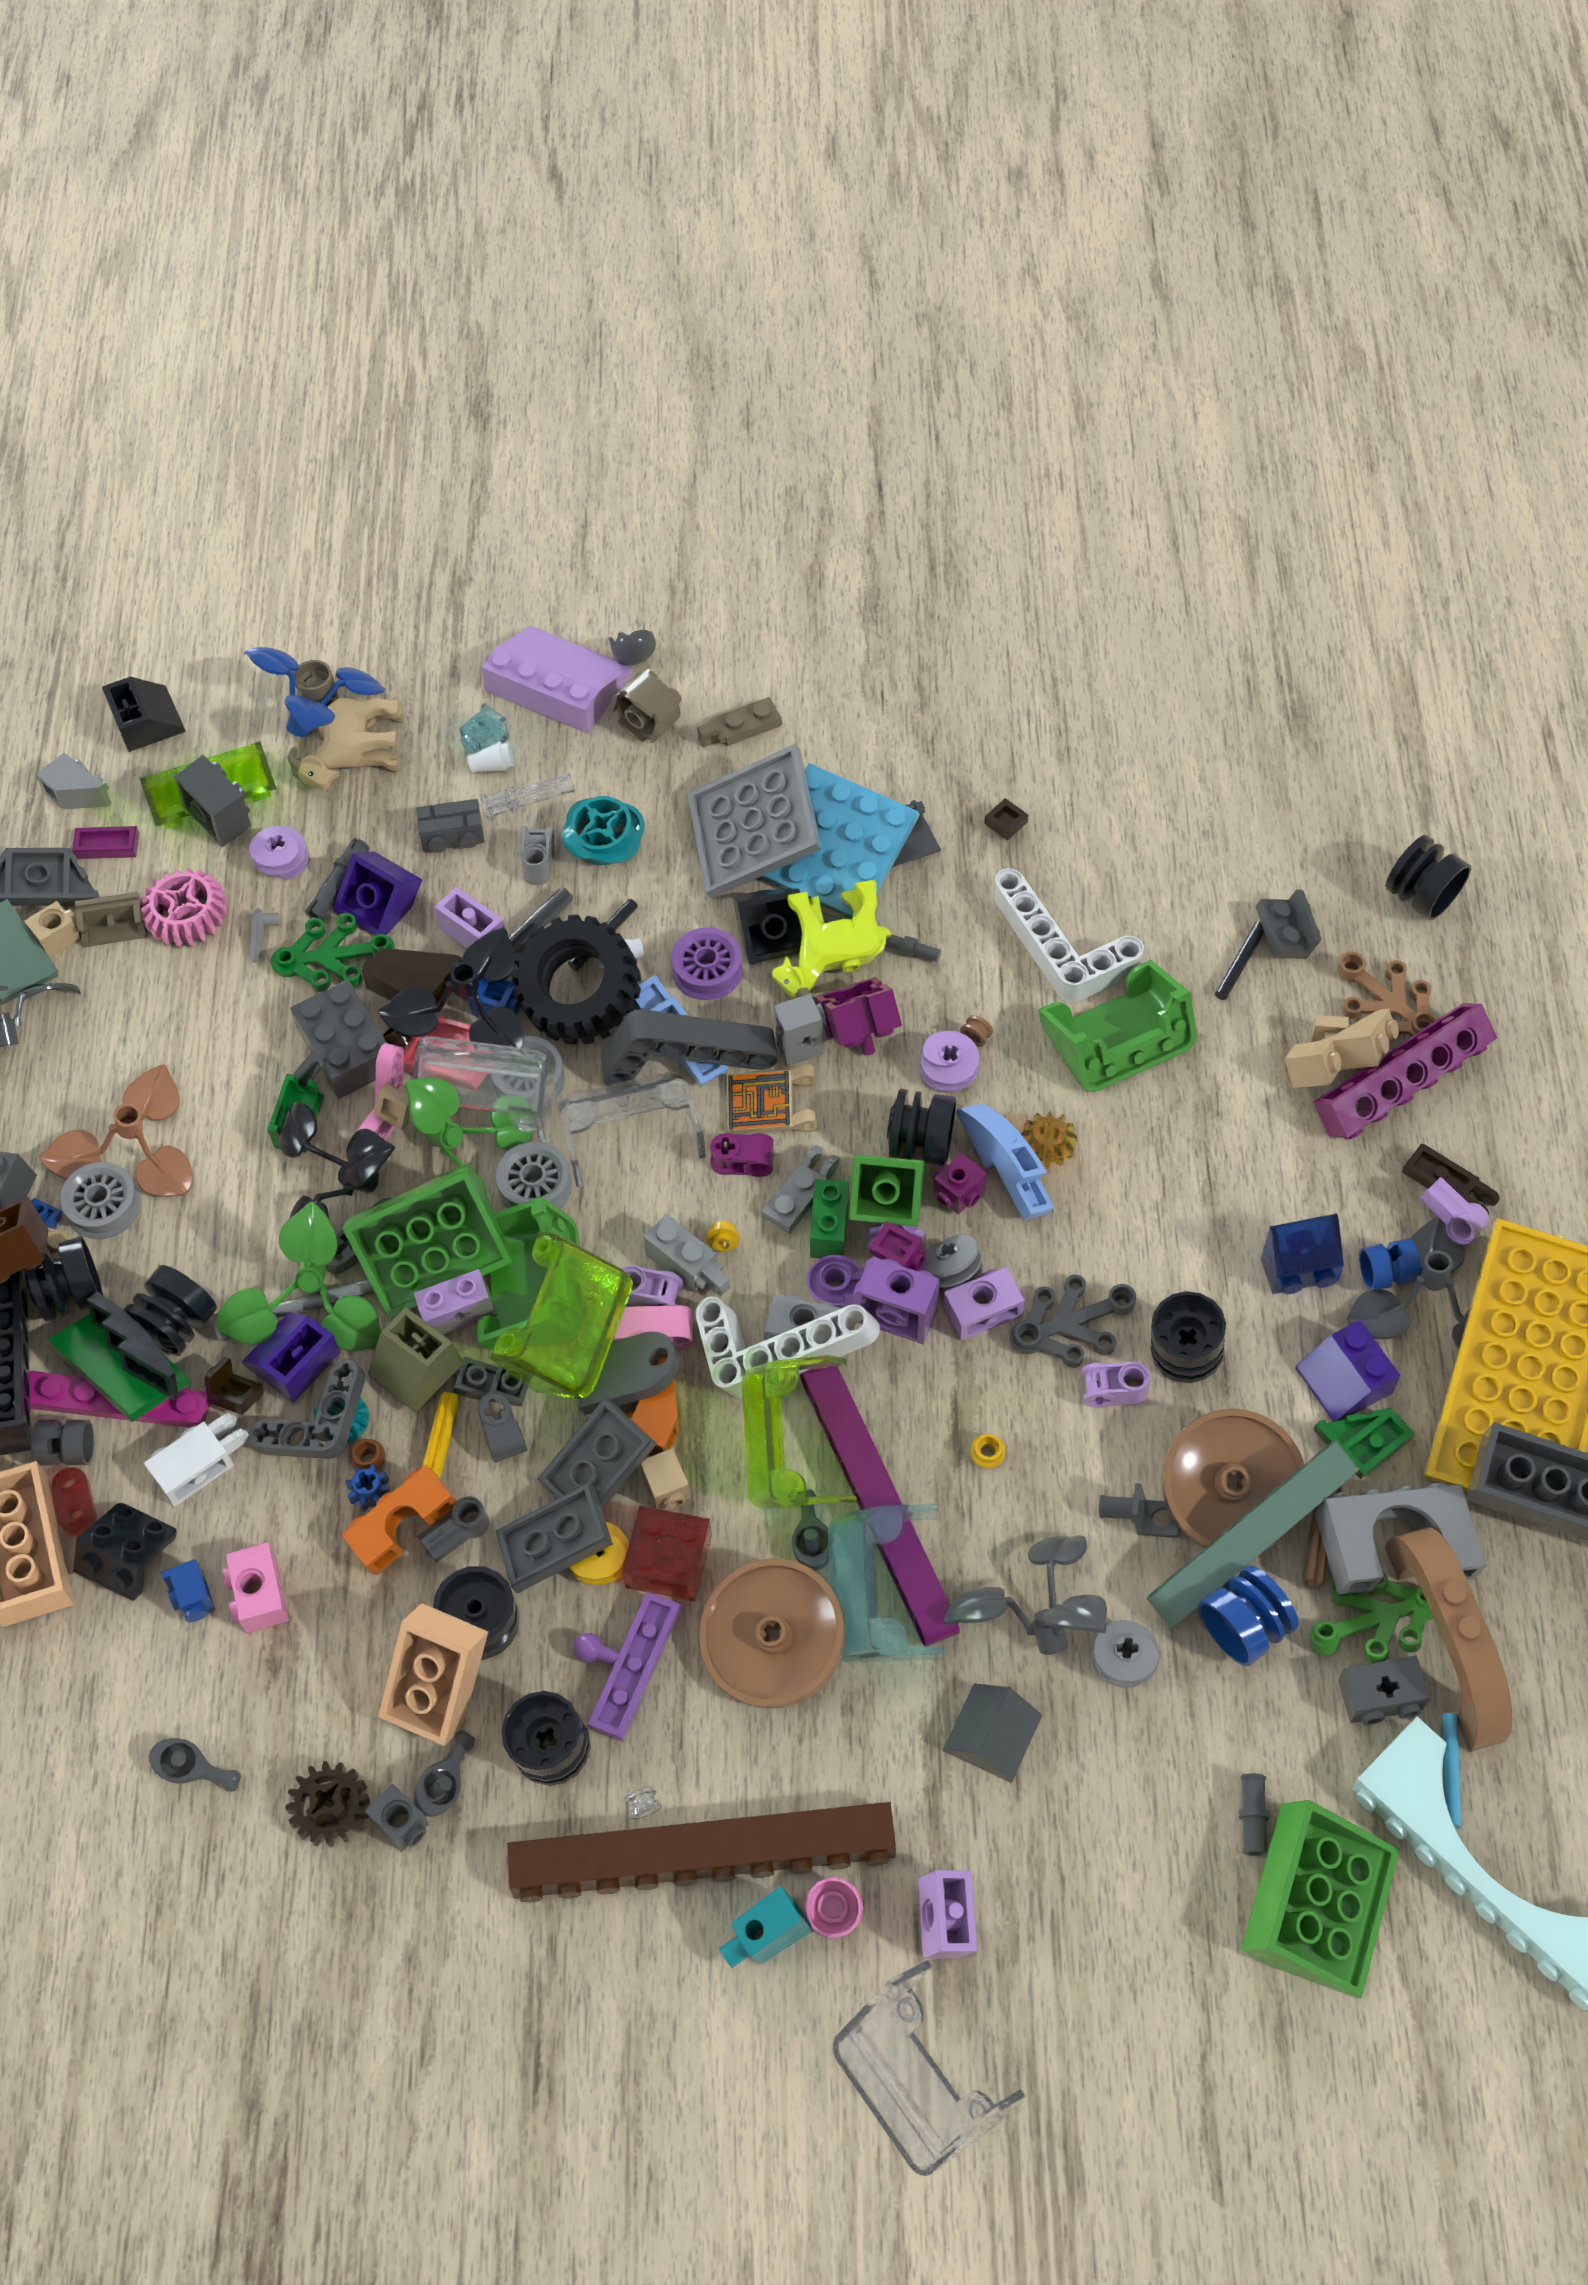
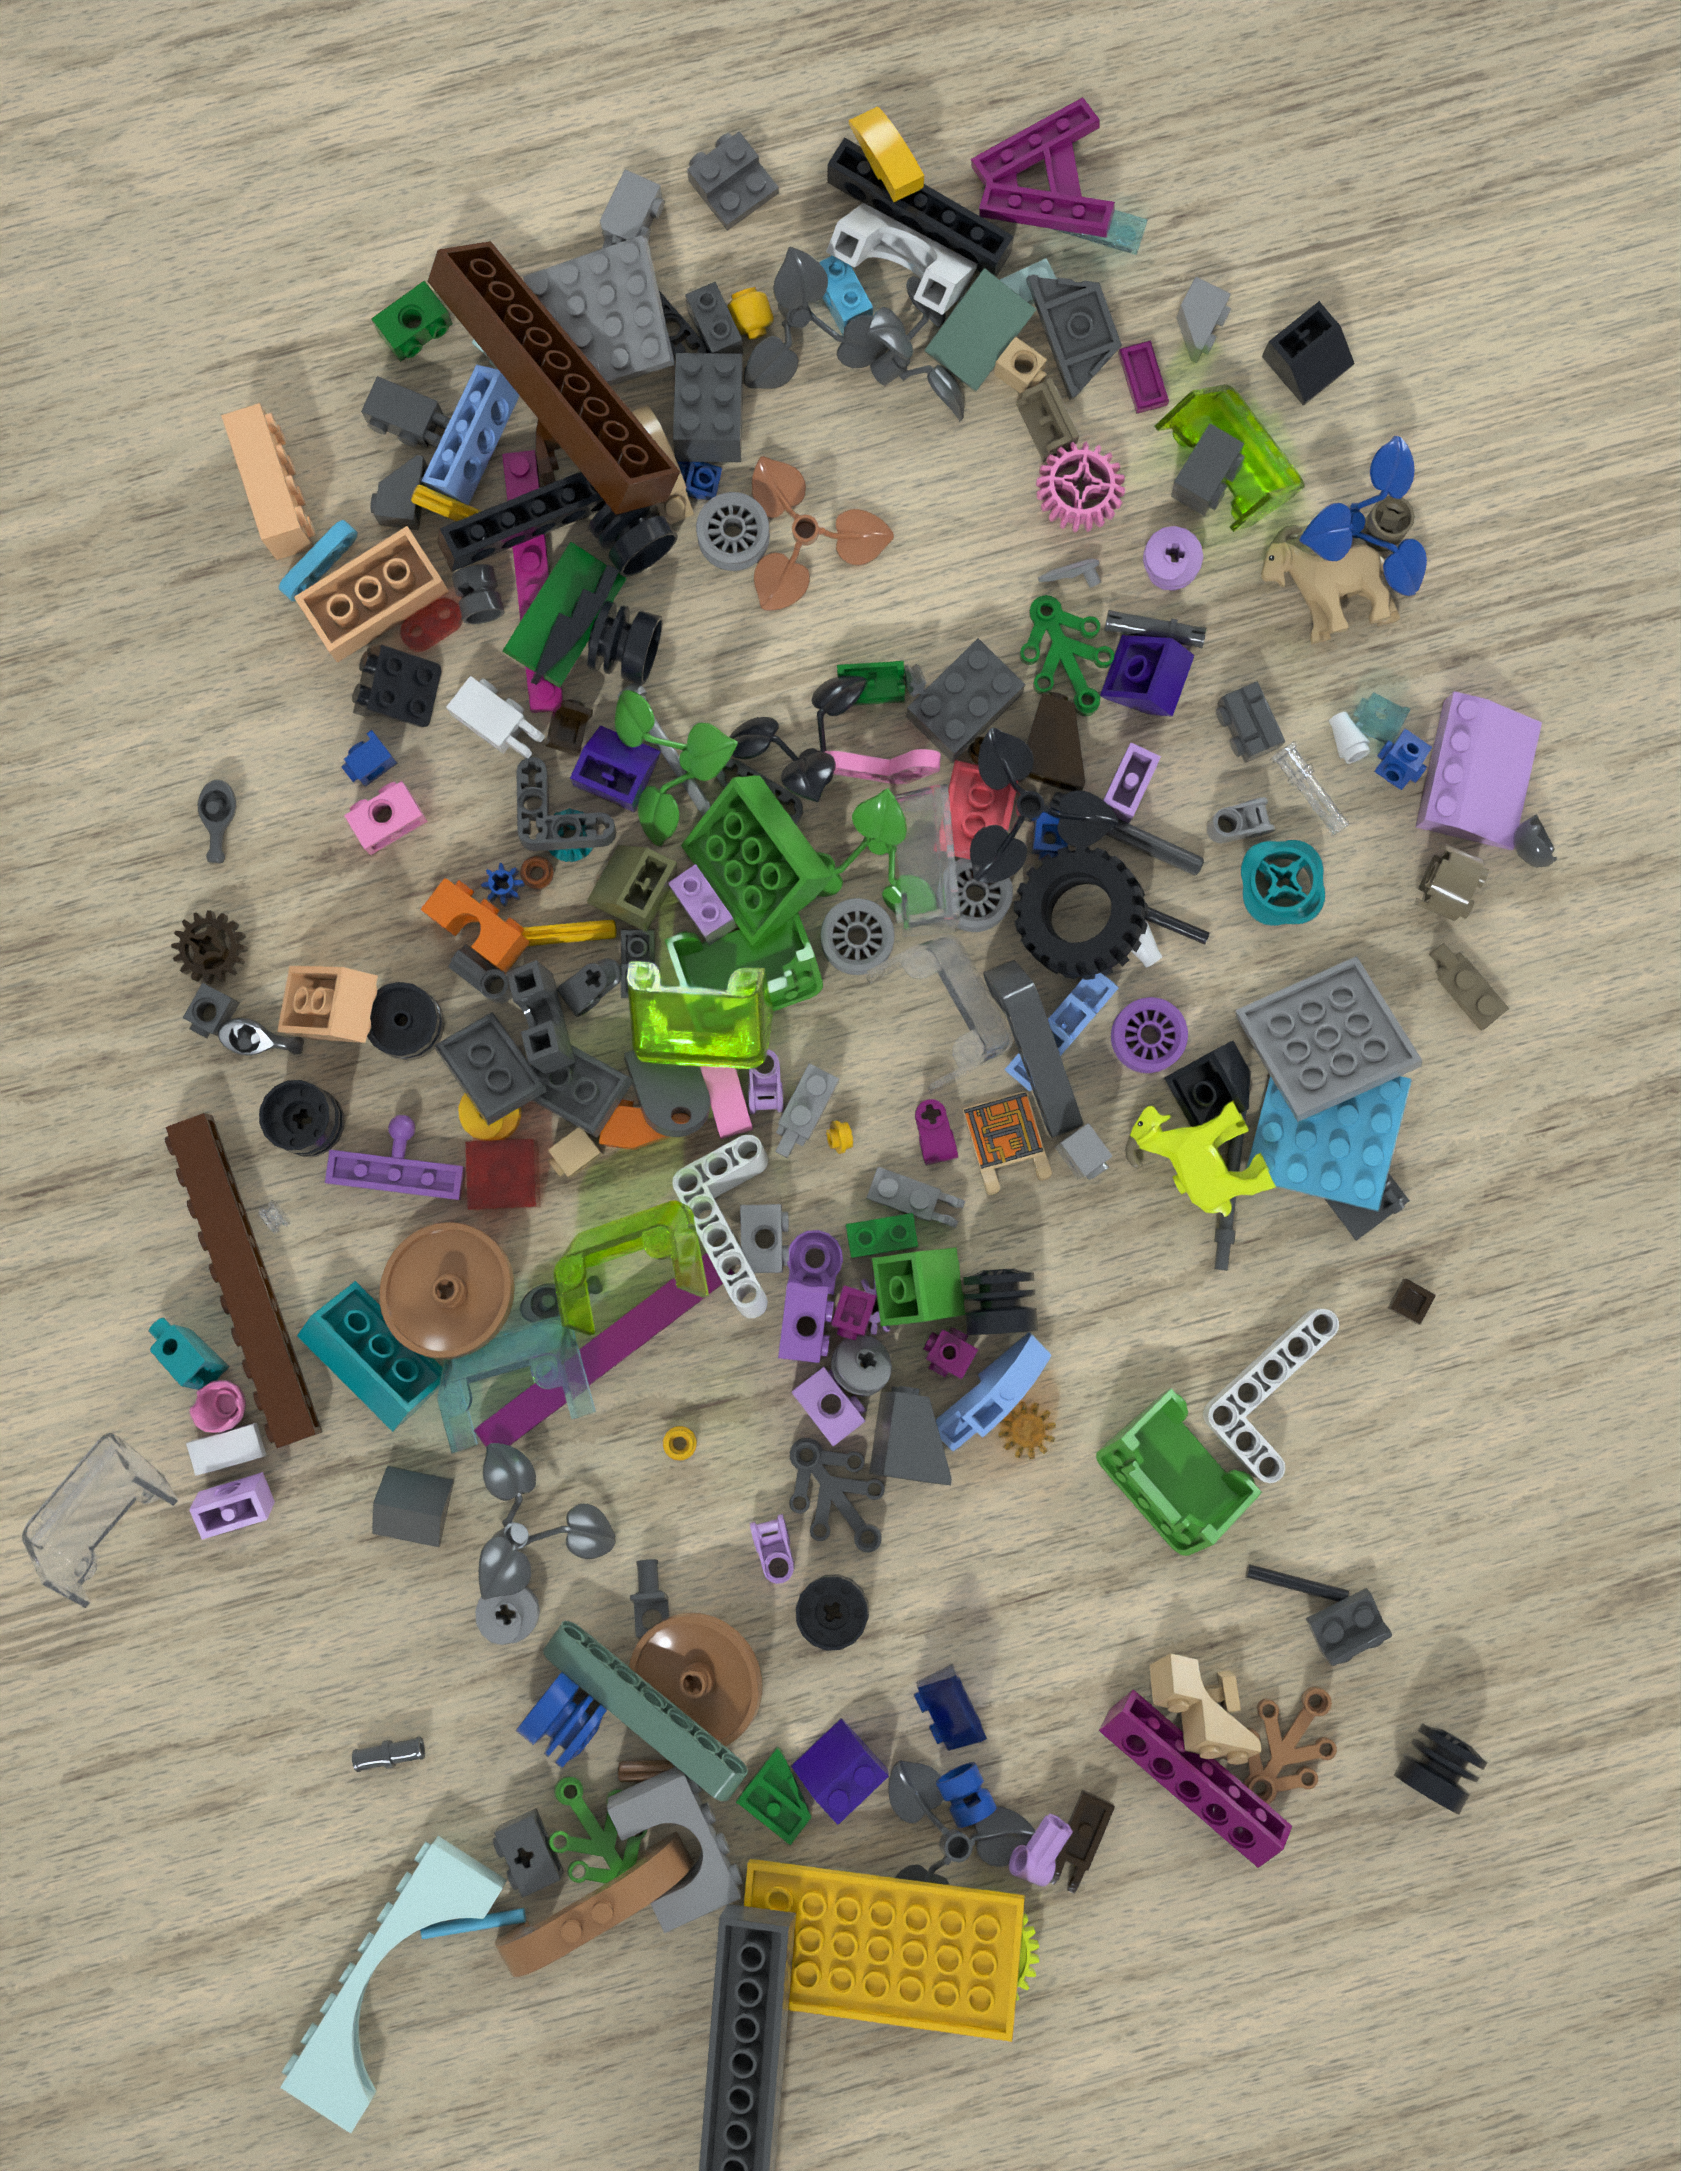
camera: 70 degrees right, 25 degrees up
(393, 1106) = (887, 776): tan tile -> none
(499, 1476) = (547, 1037): none -> dark grey arch
(527, 721) = (1403, 759): none -> blue brick
(822, 1732) = (367, 1357): none -> teal slope
(859, 1012) = (1118, 1207): magenta brick -> none
(883, 1914) = (226, 1449): none -> white slope
(949, 1061) = (1088, 1294): lavender piece -> none
(977, 1030) = (1137, 1329): medium nougat bush -> none
(1033, 1231) = (908, 1439): none -> dark grey slope
(1320, 1898) = (326, 1824): bright green slope -> none

